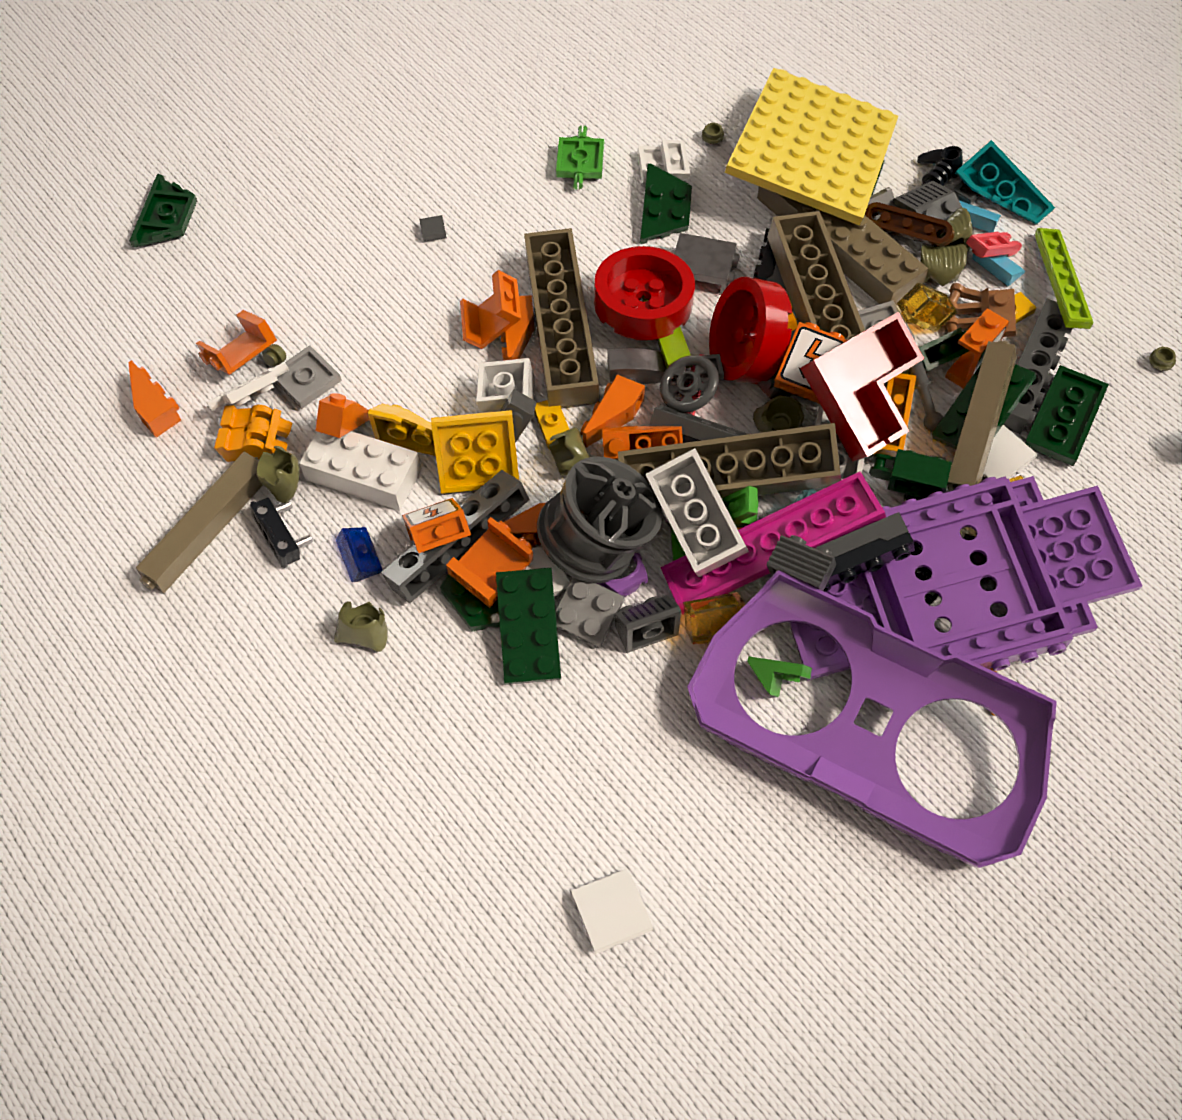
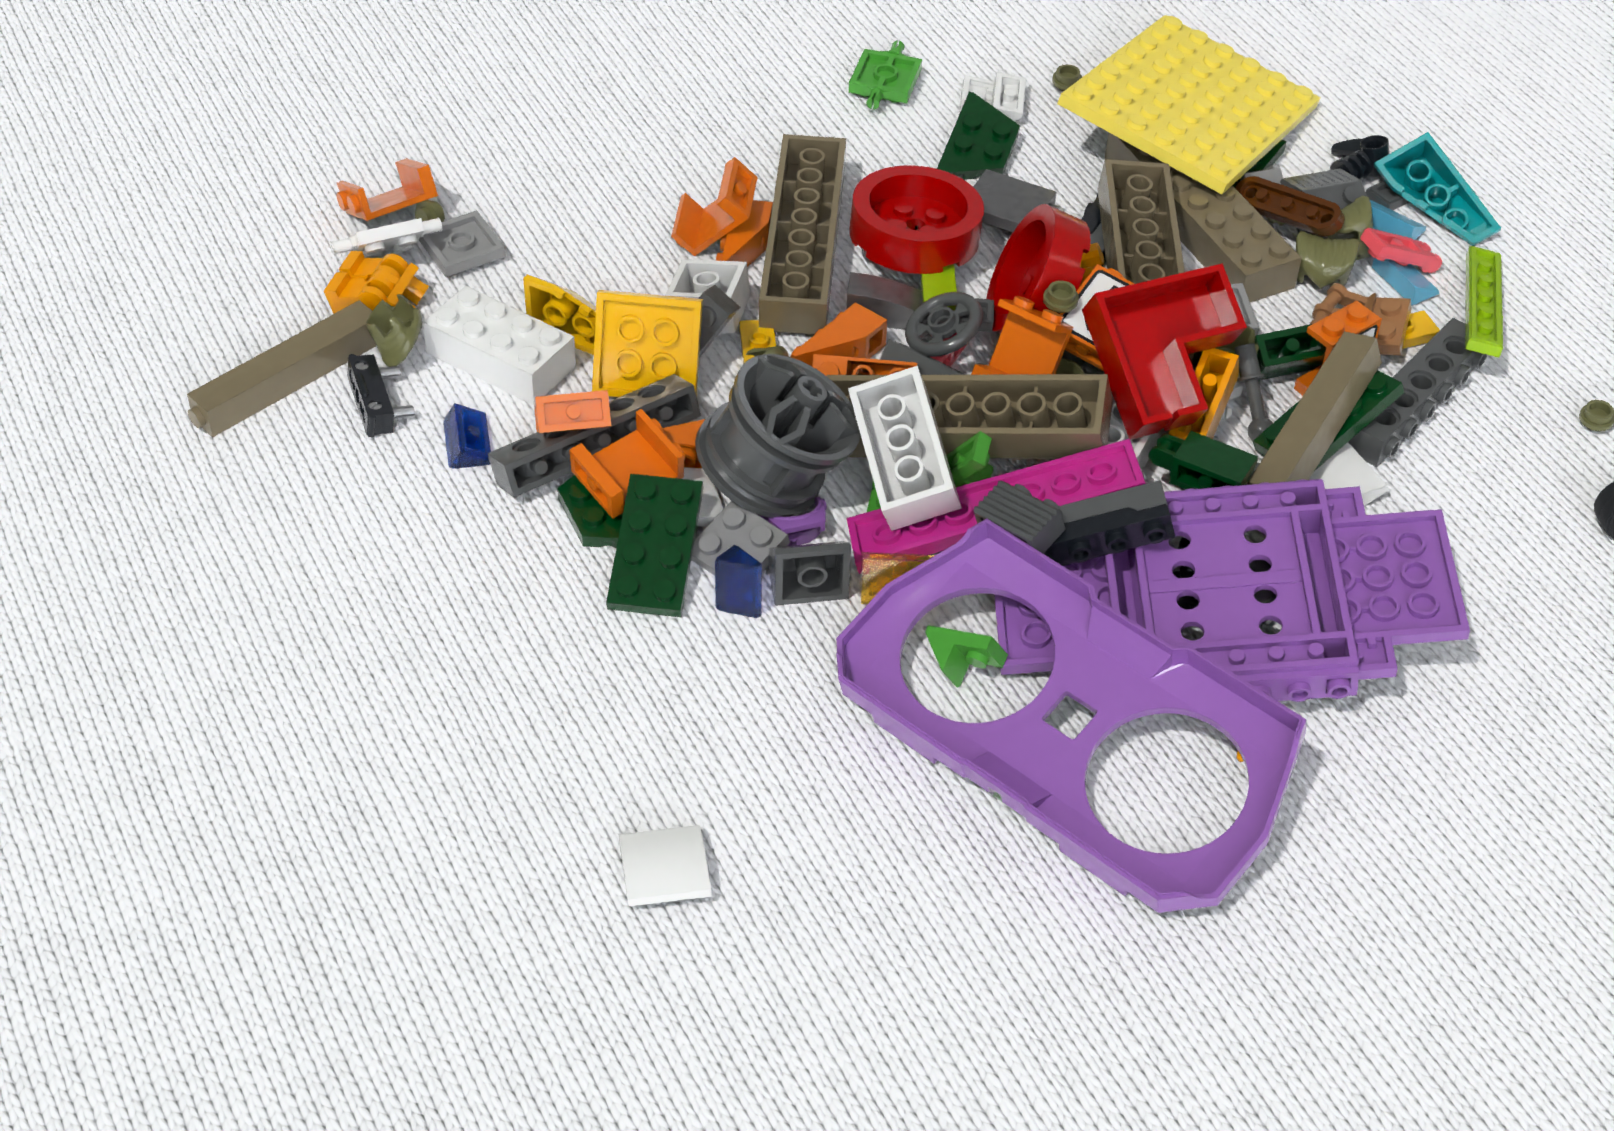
camera: 10 degrees right, 15 degrees down
(150, 403) = (262, 237): orange slope -> none
(164, 213) = (342, 49): dark green wing -> none
(339, 415) = (489, 275): orange slope -> none
(362, 626) = (445, 510): olive hair -> none
(432, 228) = (672, 119): dark grey tile -> none
(601, 650) = (738, 583): none -> clear blue slope
(758, 400) = (1028, 342): none -> orange panel
(779, 357) = (1061, 297): none -> olive plate
(926, 307) = (1284, 298): clear yellow brick -> none
(1066, 415) = (1443, 453): dark green plate -> none

